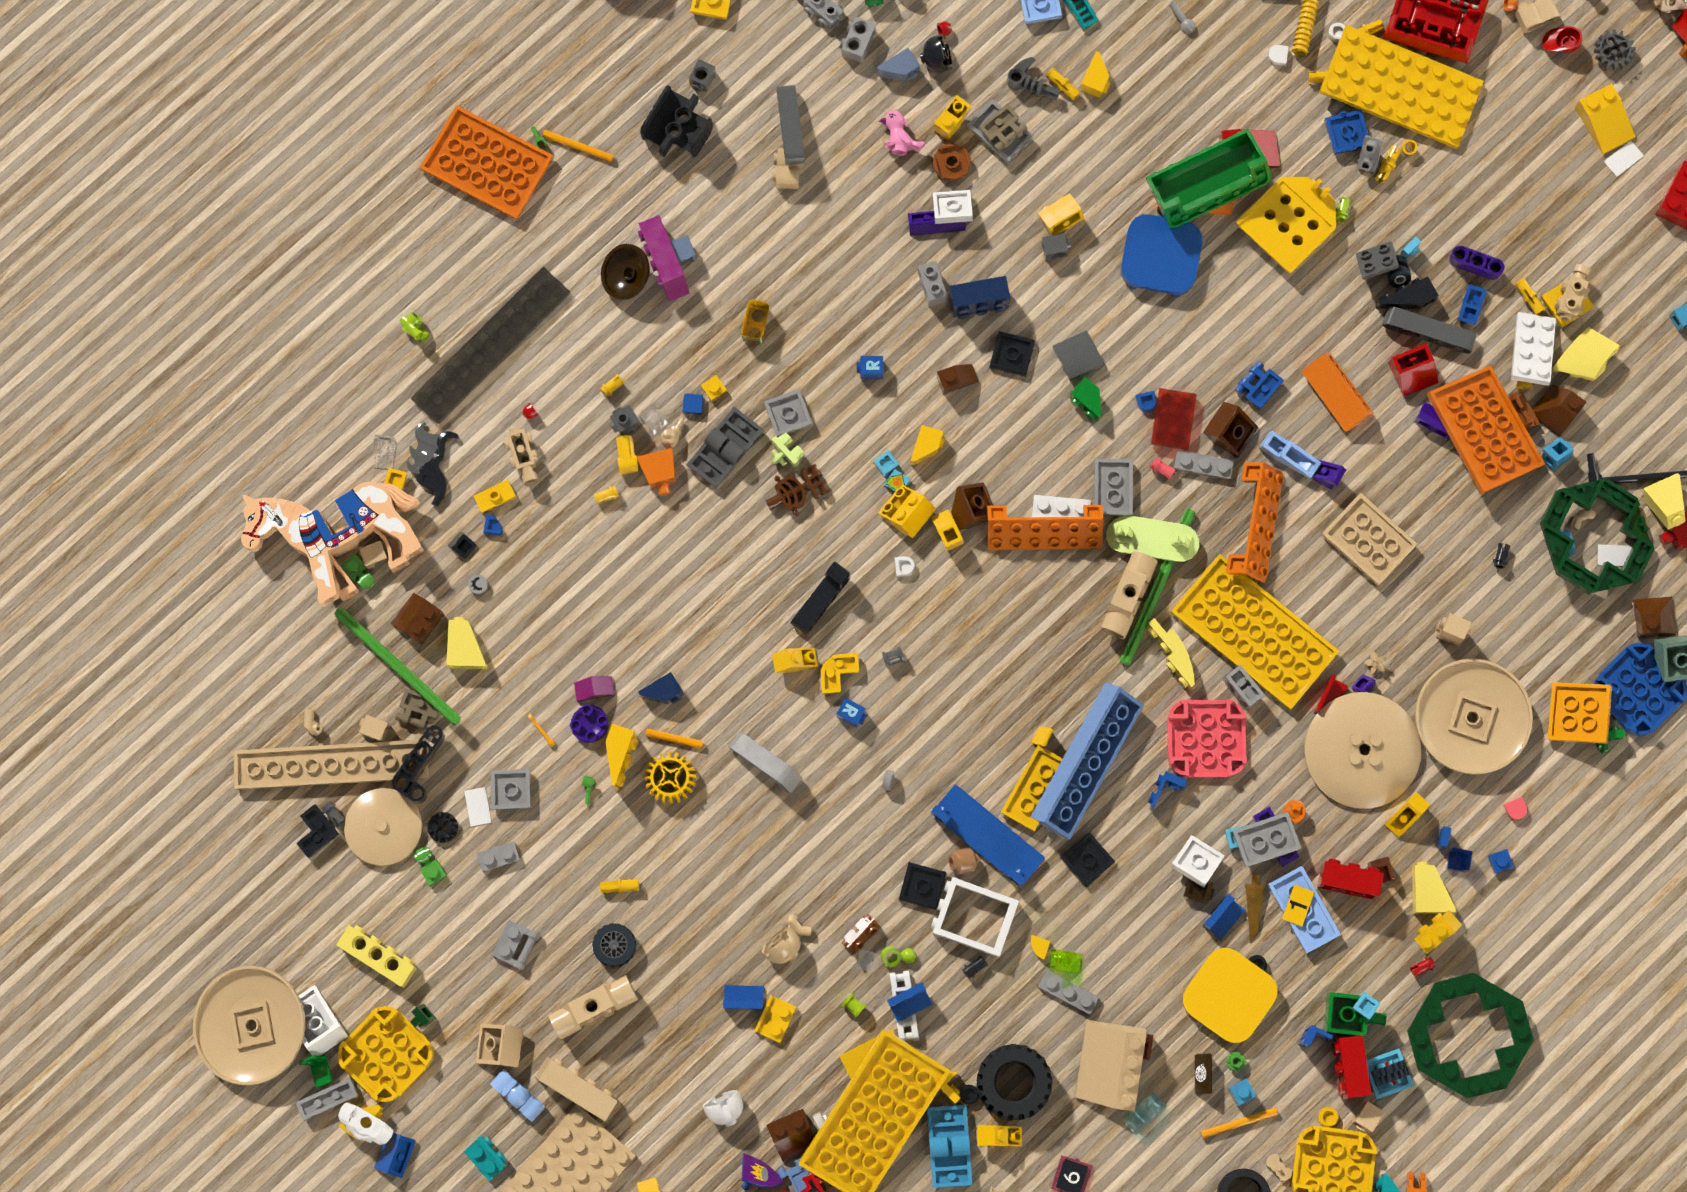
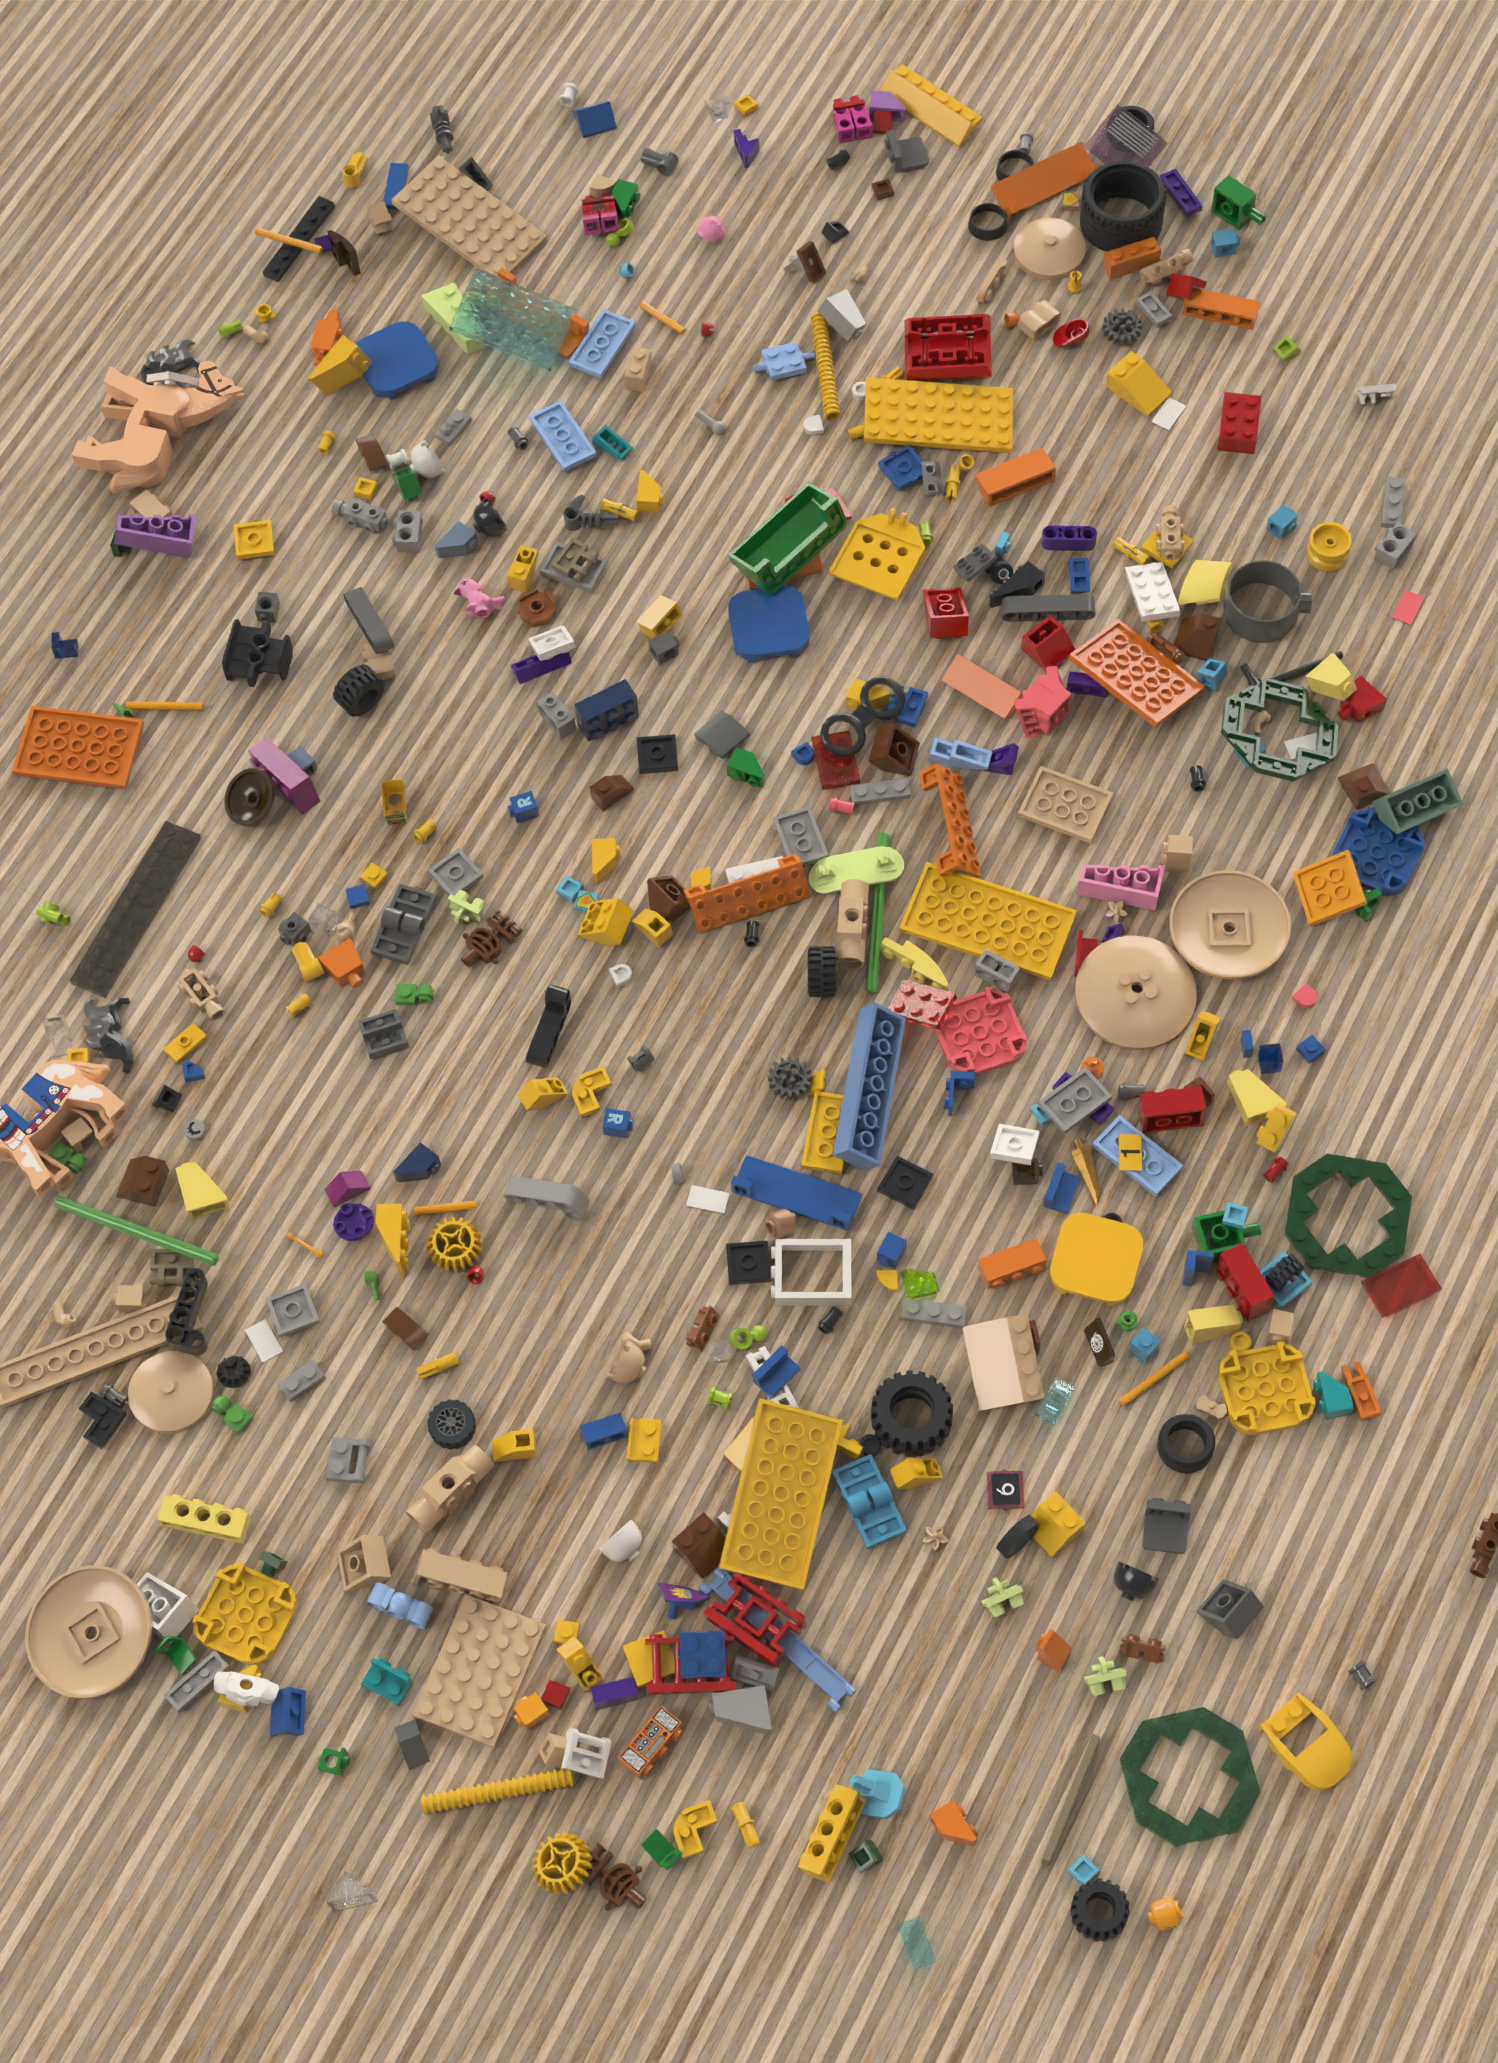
camera: 20 degrees left, 15 degrees down
(504, 52) = (63, 648): none -> clear blue panel
(602, 841) = (405, 1327): none -> reddish brown slope
(651, 1168) = (565, 1631): none -> yellow plate
(661, 986) = (515, 1446): none -> yellow slope
(672, 550) = (383, 1034): none -> dark grey slope
(679, 812) = (471, 1276): none -> red hinge
(707, 518) = (407, 994): none -> bright green plate
(758, 197) = (359, 690): none -> black tyre
(774, 359) = (422, 834): none -> yellow pin
(907, 812) = (707, 1199): none -> white sticker
(1008, 497) = (701, 877): none -> yellow slope
(1028, 723) = (779, 1083): none -> dark grey gear
(1035, 568) = (751, 938): none -> black pin
(1051, 922) = (891, 1250): none -> blue brick
(1084, 633) = (821, 971): none -> black tyre
(1153, 973) = (1012, 1264): none -> orange brick
(1163, 695) = (922, 1004): none -> clear red plate
(1213, 386) = (862, 716): none -> black bar
(1224, 364) = (877, 696): none -> yellow slope
(1310, 1093) = (1212, 1323): none -> light yellow slope
(1322, 845) = (1130, 1090): none -> dark grey pin
(1331, 301) = (946, 612): none -> red slope
(1386, 432) = (1043, 704): none -> coral slope
(1397, 644) = (1135, 886): none -> bright pink wedge
(1450, 179) = (1015, 477): none -> orange brick
(1491, 1116) = (1401, 1286): none -> clear red piece
(1652, 40) = (1153, 309): none -> light grey plate
(1670, 409) = (1267, 573): none -> dark grey cylinder

